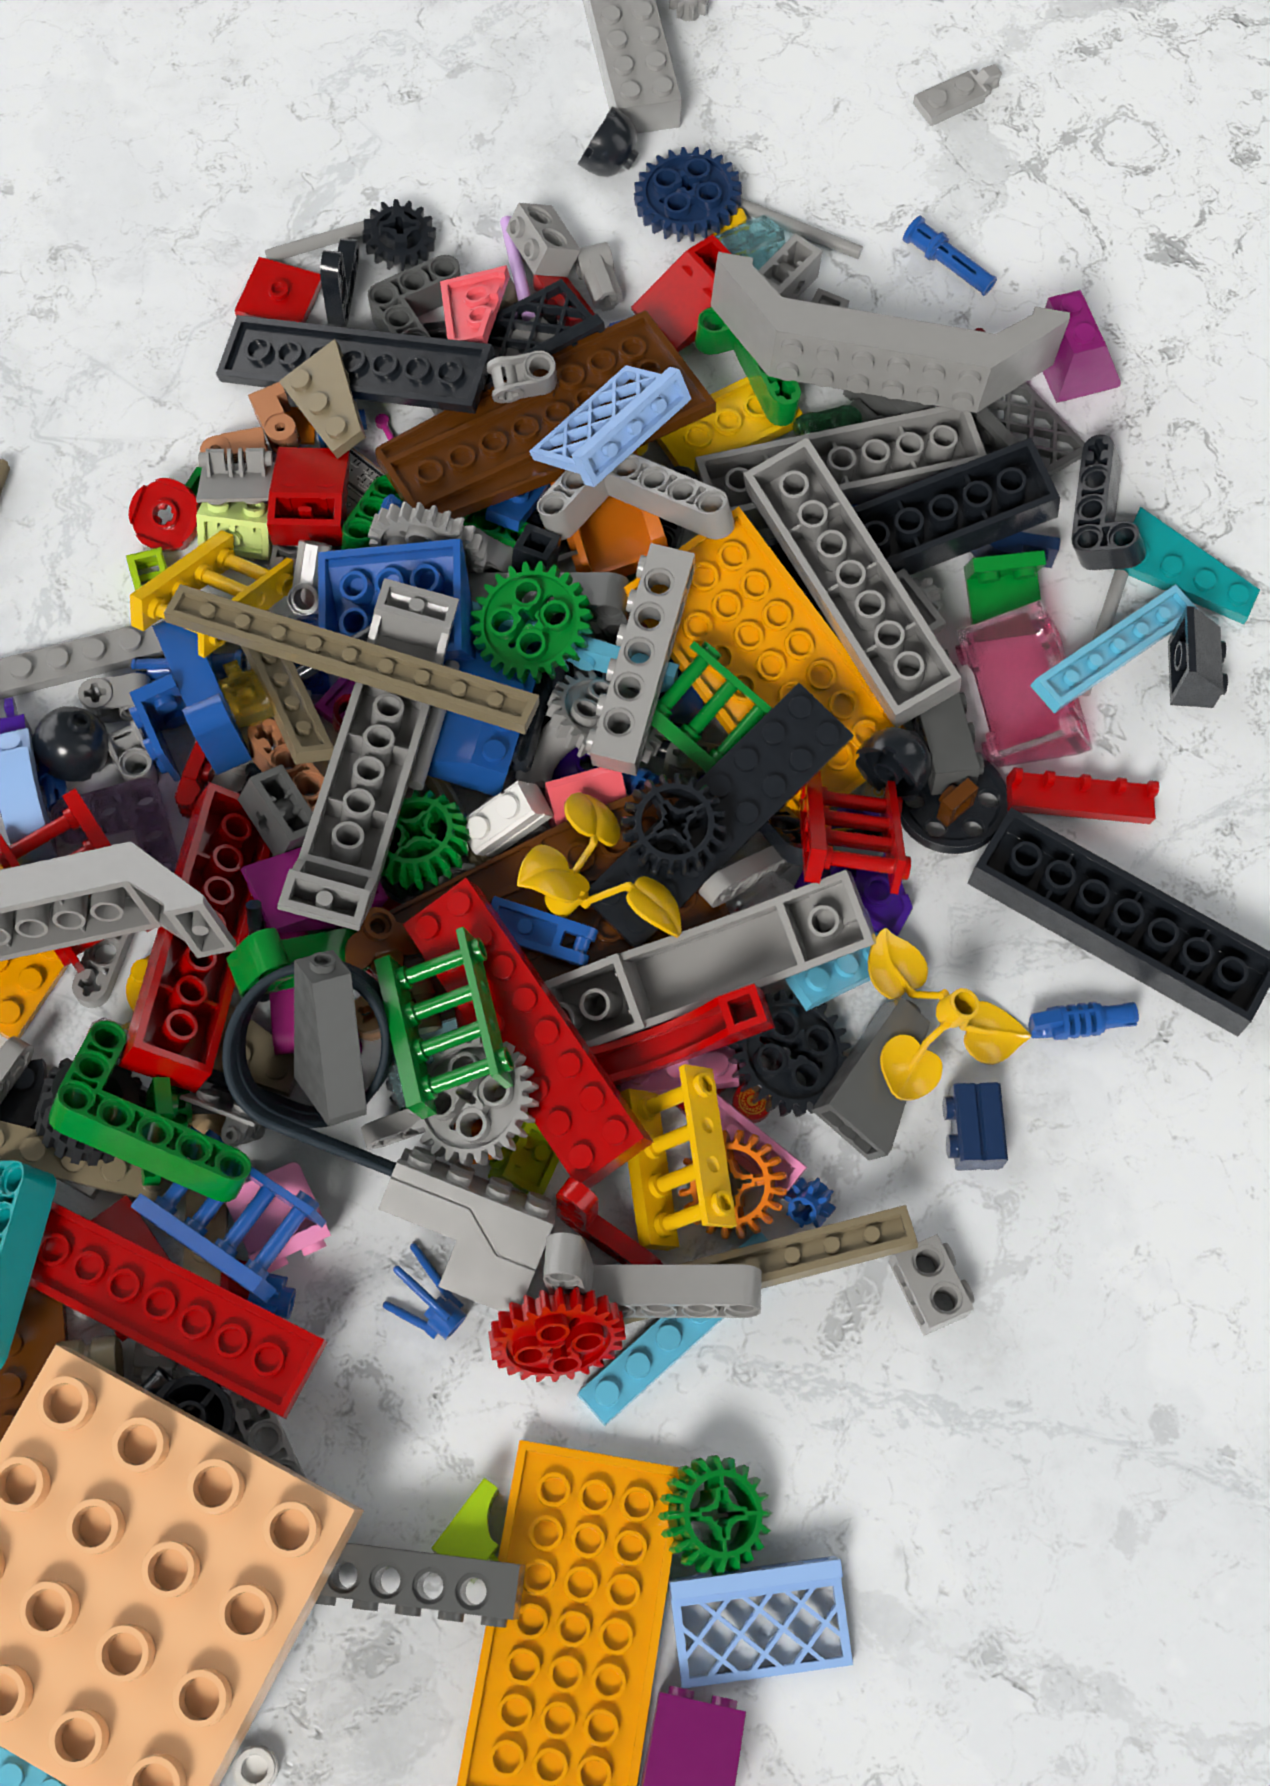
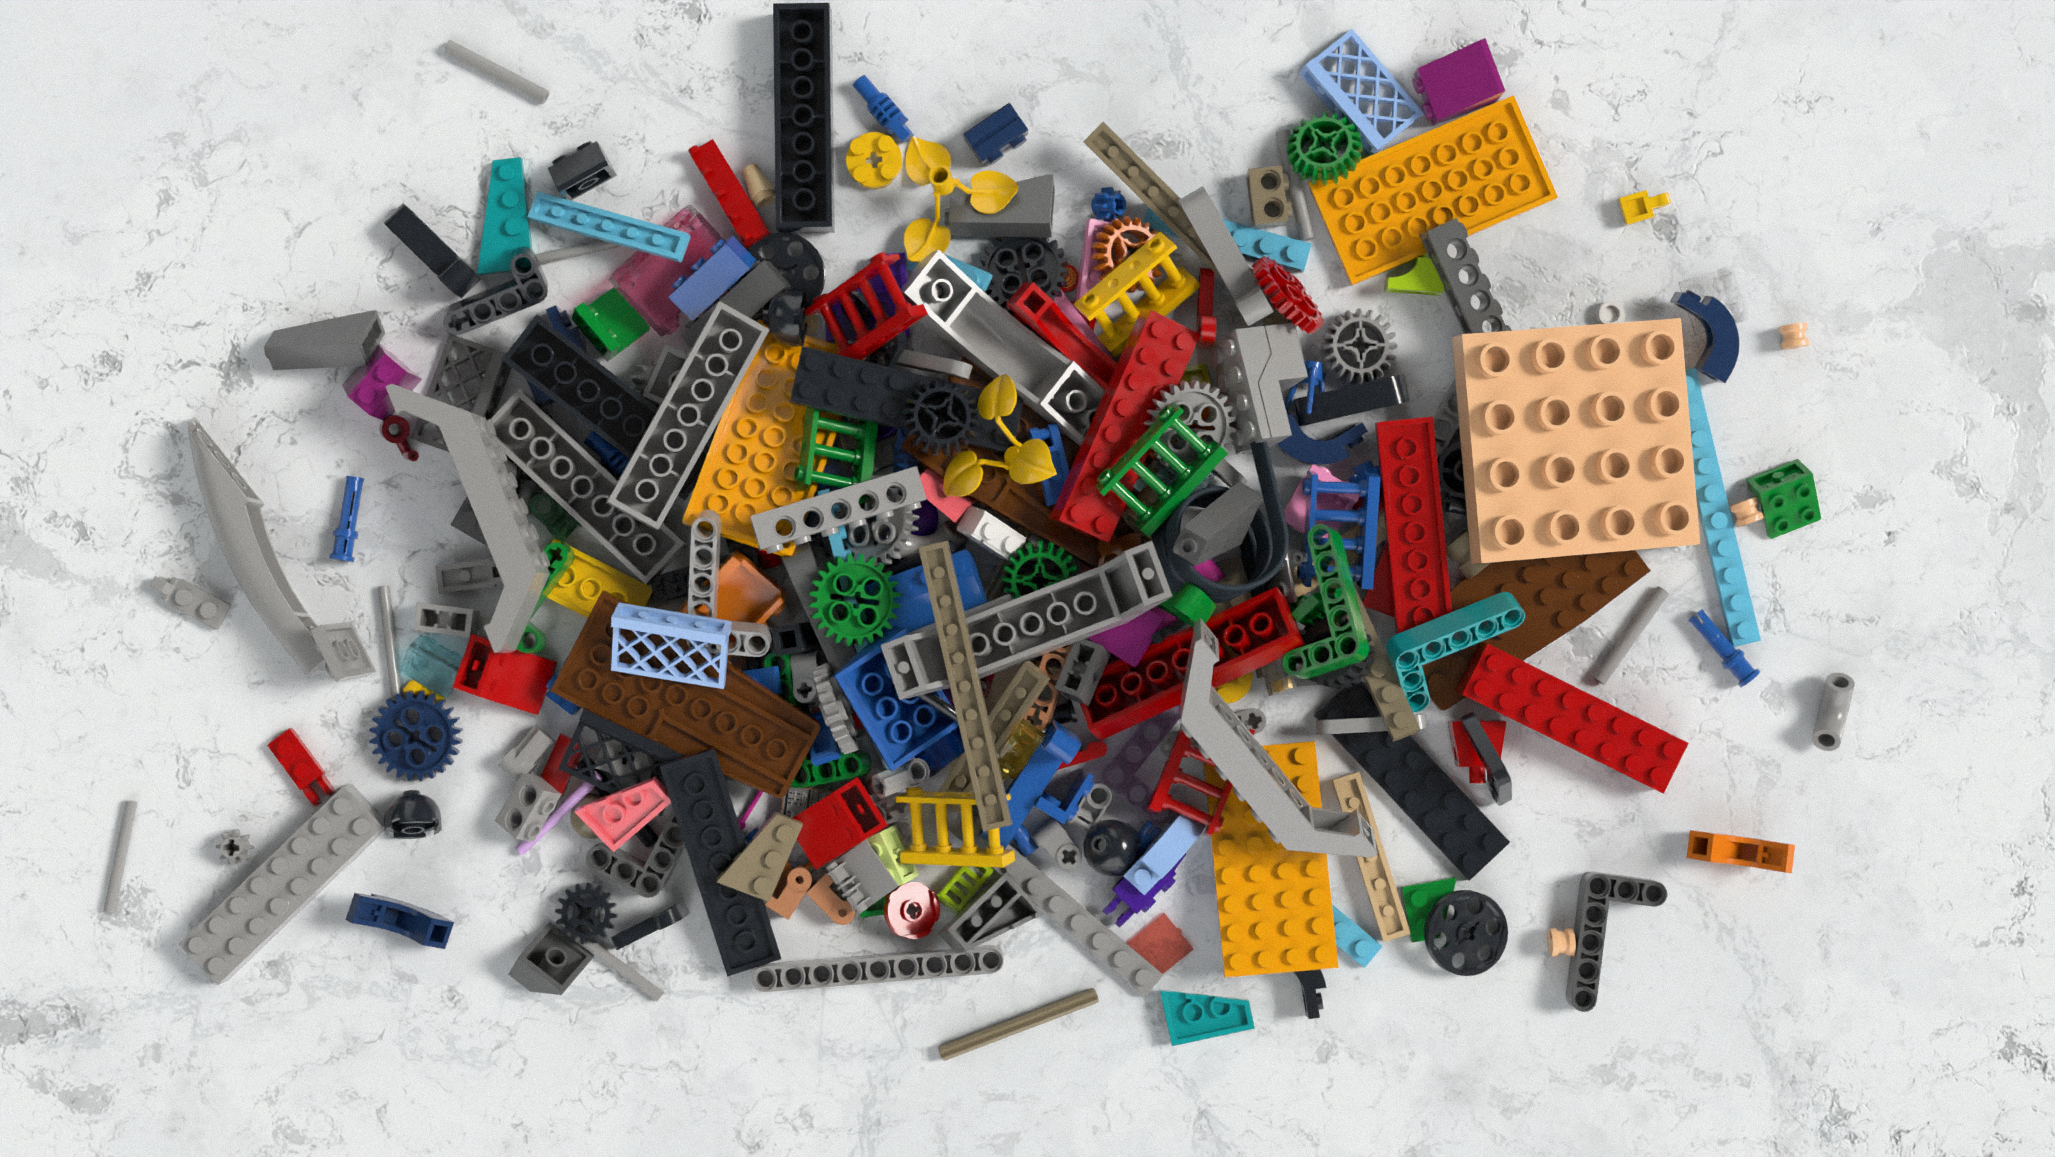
camera: 120 degrees left, 20 degrees up
(96, 575) = (989, 914): none -> dark grey wedge
(196, 358) = (865, 974): none -> light grey beam
(279, 292) = (687, 964): red plate -> none
(348, 1255) = (1312, 451): none -> dark blue arch
(356, 1381) = (1353, 399): none -> black beam
(374, 176) = (550, 962): none -> dark grey slope
(447, 1380) = (1345, 347): none -> light grey gear
(519, 376) = (670, 733): light grey piece -> none
(522, 86) = (400, 917): none -> dark blue arch
(680, 1448) = (1295, 190): none -> light grey piece
(703, 1395) = (1261, 197): none -> dark tan brick
(726, 94) = (300, 765): none -> red hinge
(816, 163) = (342, 651): none -> light grey plate
(921, 1287) = (1116, 109): light grey brick -> none
(956, 801) = (789, 266): reddish brown plate -> none
(971, 155) = (246, 545): none -> light grey slope
(995, 712) = (711, 277): none -> blue brick
(1046, 966) = (861, 150): none -> yellow plate
(1075, 830) = (758, 186): none -> tan cone
(1148, 330) = (326, 343): none -> dark grey slope
(1164, 484) = (432, 251): none -> black beam

